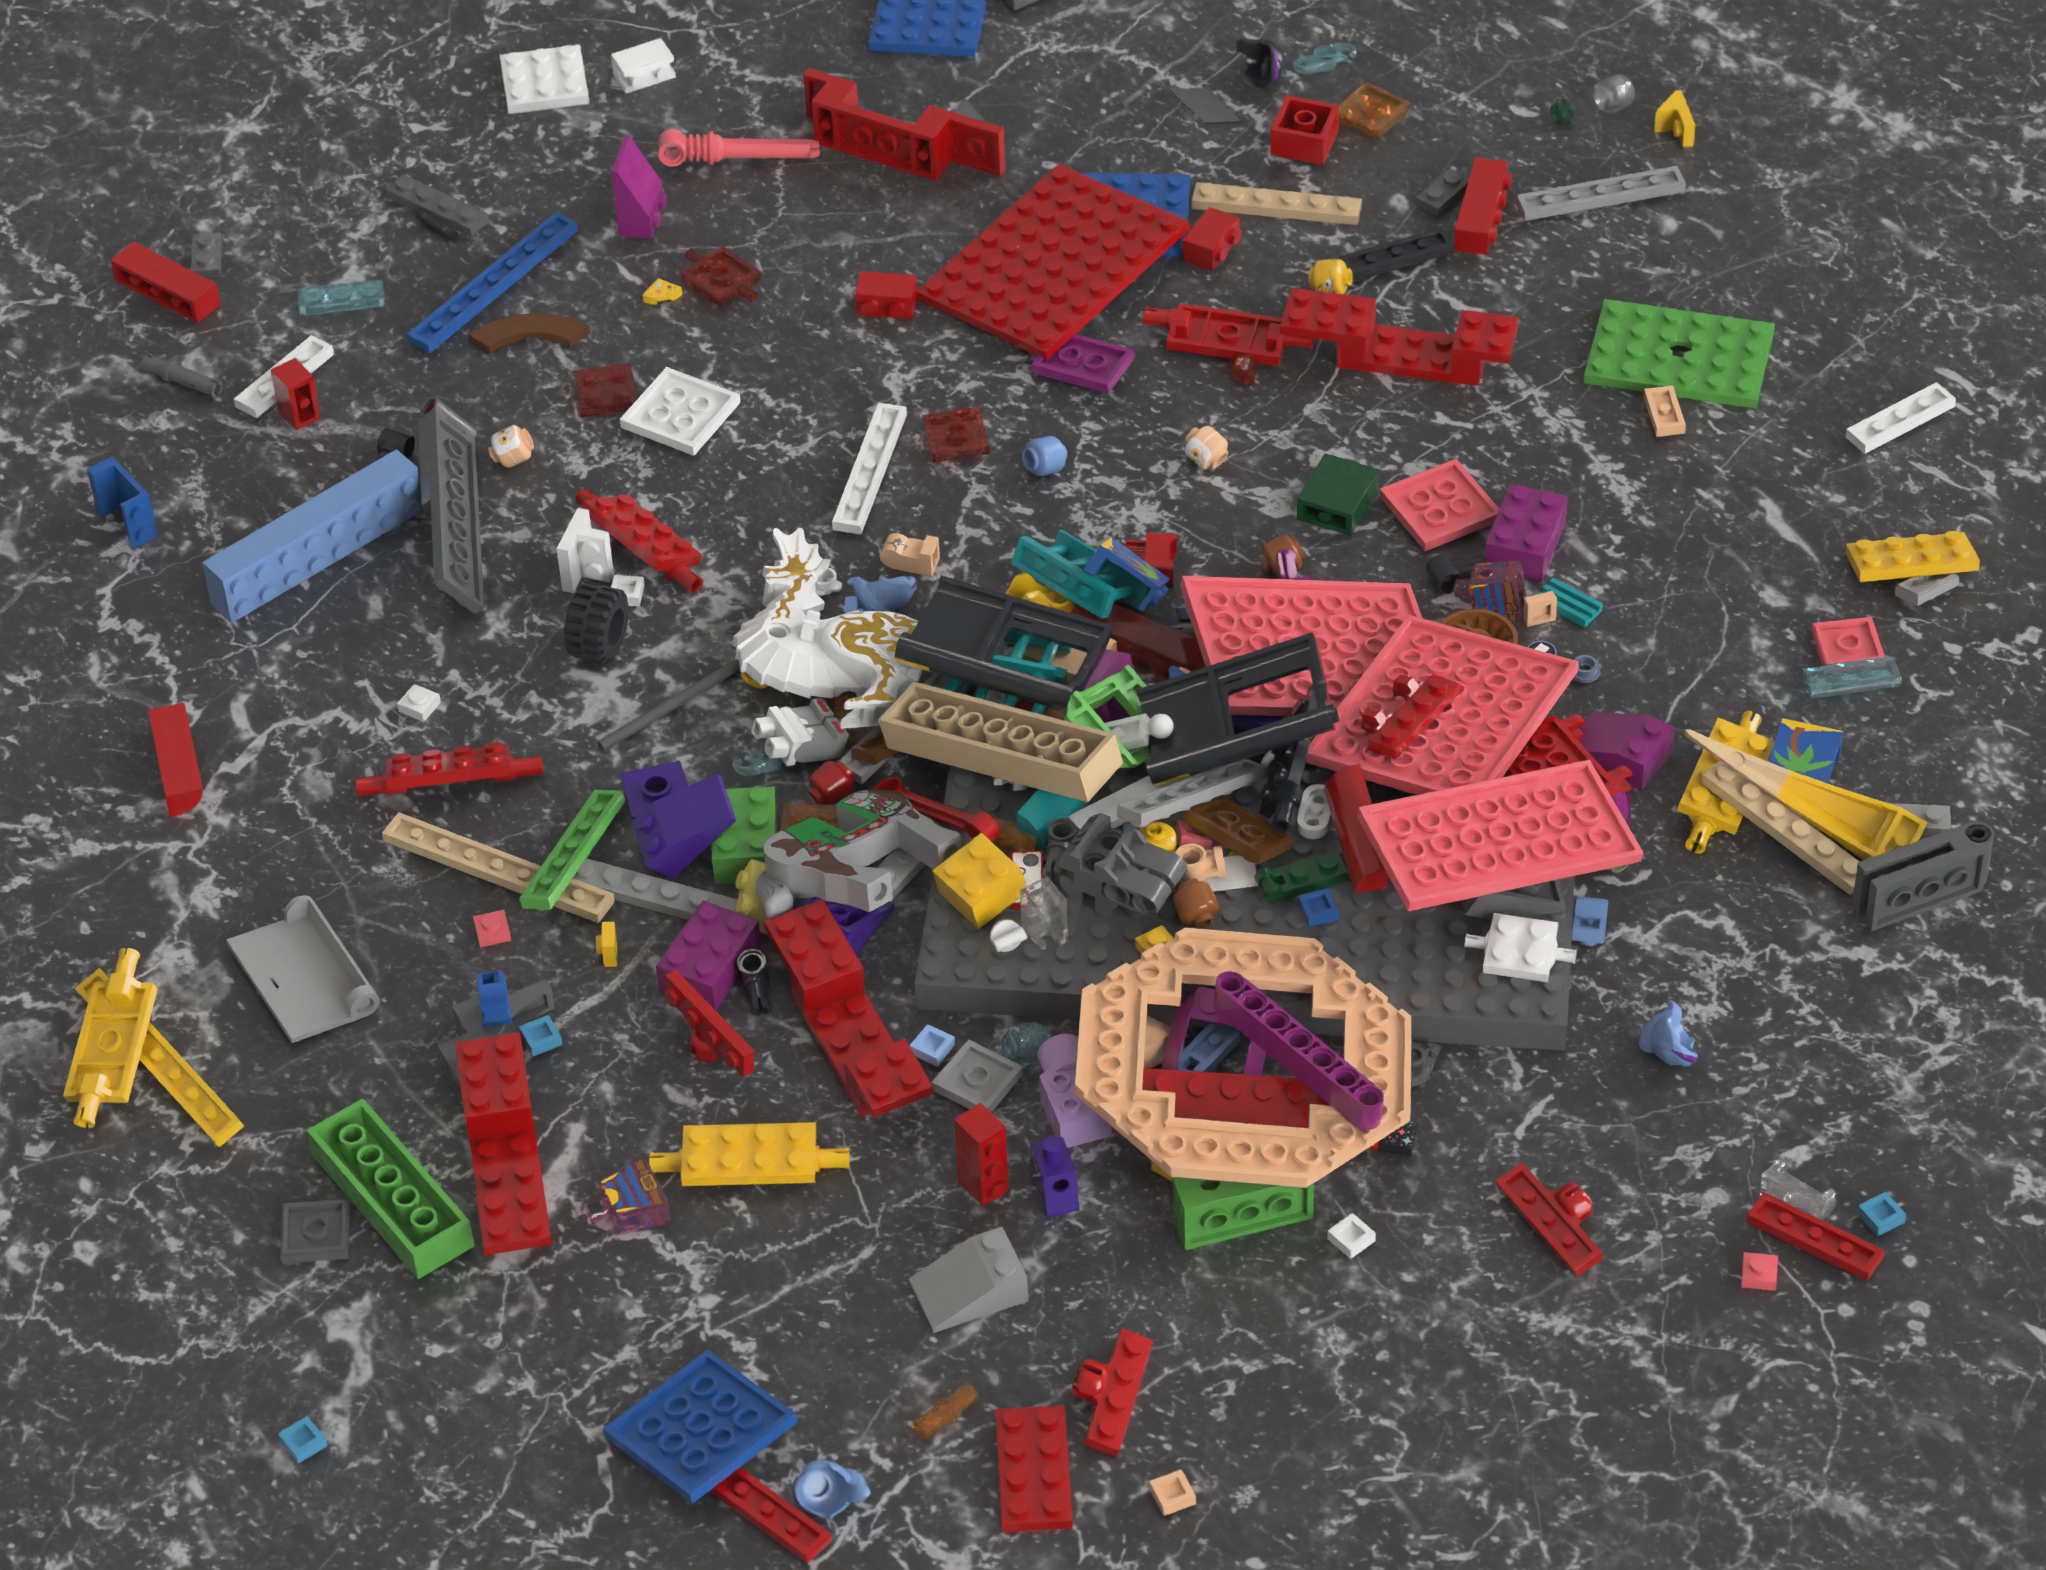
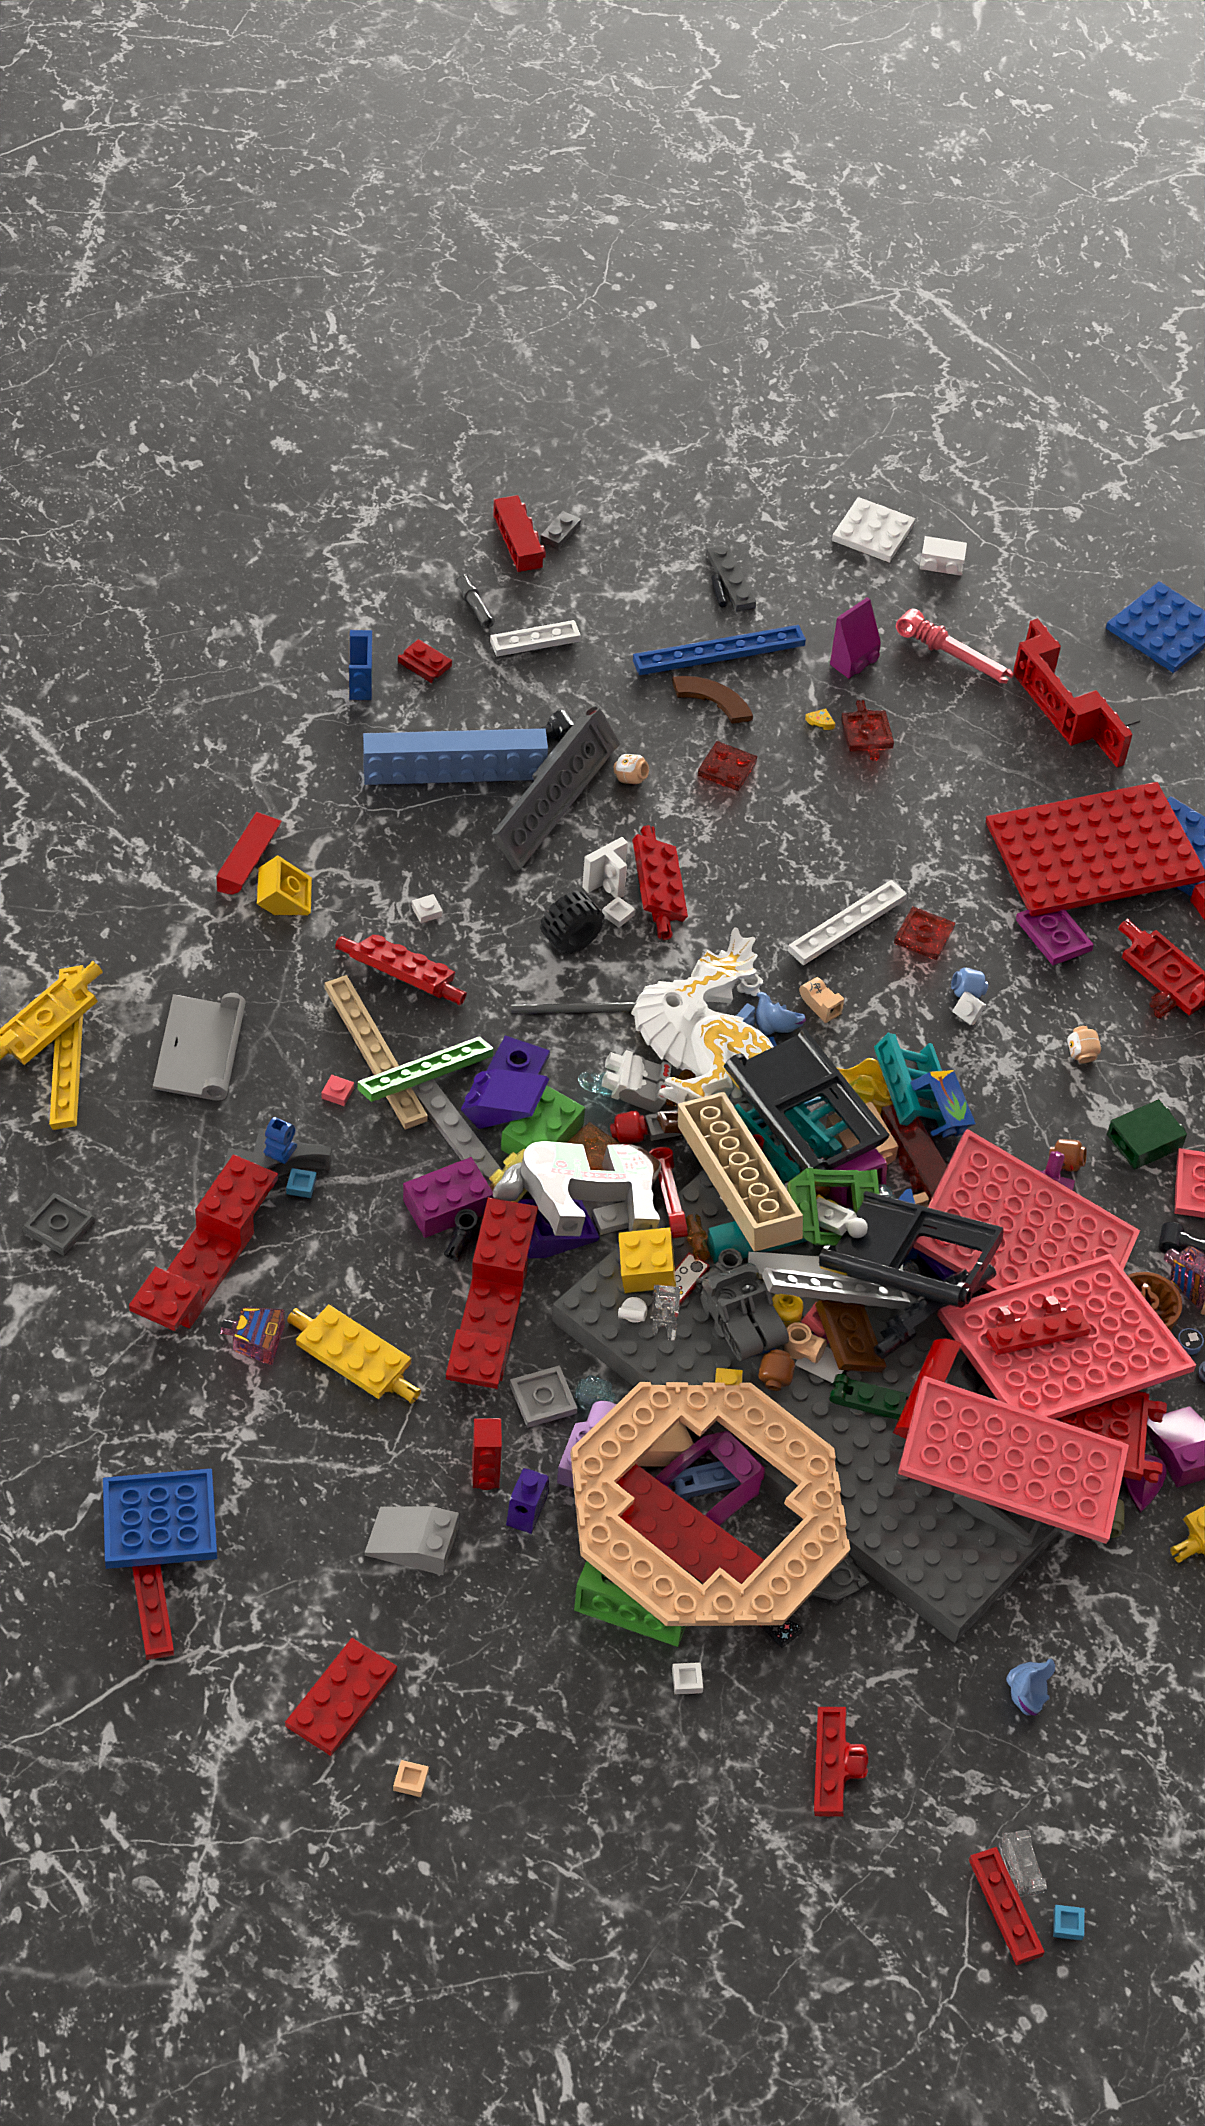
camera: 30 degrees right, 5 degrees up
(181, 465) = (424, 660): none -> red plate
(246, 770) = (283, 888): none -> yellow slope
(295, 394) = (526, 654): red brick -> none
(341, 297) = (618, 605): clear light blue plate -> none
(390, 1188) = (118, 1226): bright green brick -> none
(607, 944) = (395, 1148): yellow plate -> none
(680, 411) = (760, 808): white plate -> none
(710, 1030) = (398, 1254): red plate -> none
(828, 1488) = (199, 1619): medium blue hair -> none
(886, 295) = (963, 807): red brick -> none
(932, 1045) = (535, 1353): light blue plate -> none
(945, 1411) = (320, 1616): clear orange pin -> none
(1064, 478) = (969, 1008): none -> white plate
(1112, 1390) = (436, 1678): red plate -> none
(1157, 551) = (983, 1100): red piece -> none
(1298, 1050) = (737, 1533): magenta beam -> none
(1314, 813) = (913, 1356): white plate -> none
(1318, 907) = (858, 1427): blue plate -> none
(1520, 947) = (972, 1549): white plate -> none
(1590, 920) = (1050, 1561): medium blue bracket -> none
(1759, 1271) = (946, 1903): coral plate -> none

